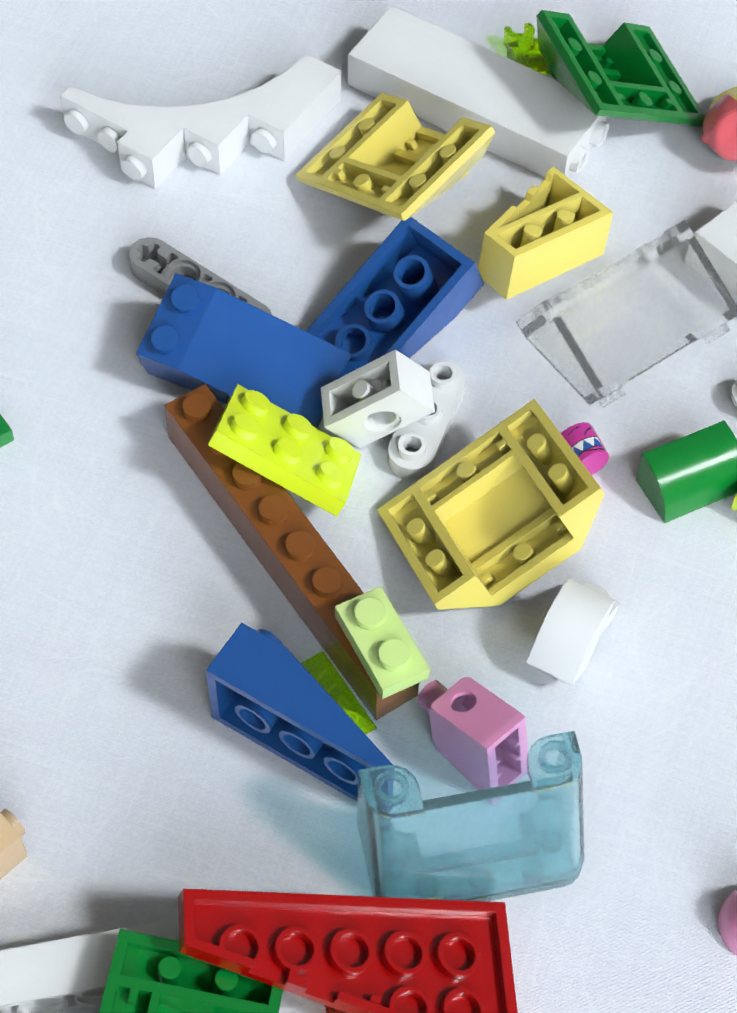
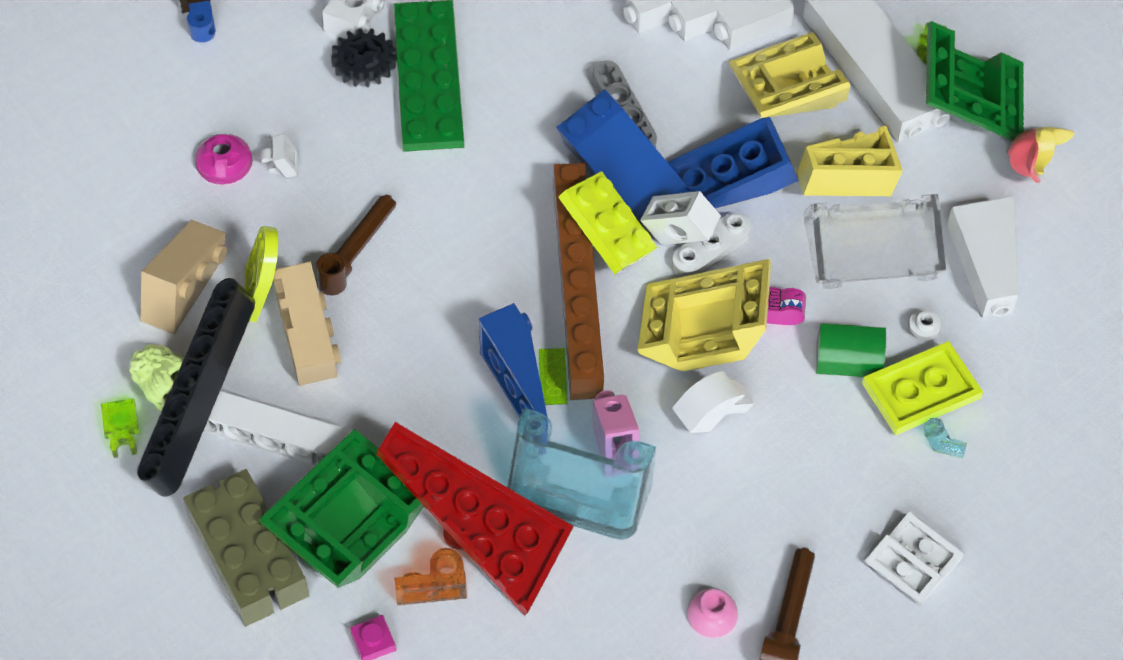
camera: 30 degrees right, 0 degrees up
(382, 642) = (588, 352): yellowish green plate -> none

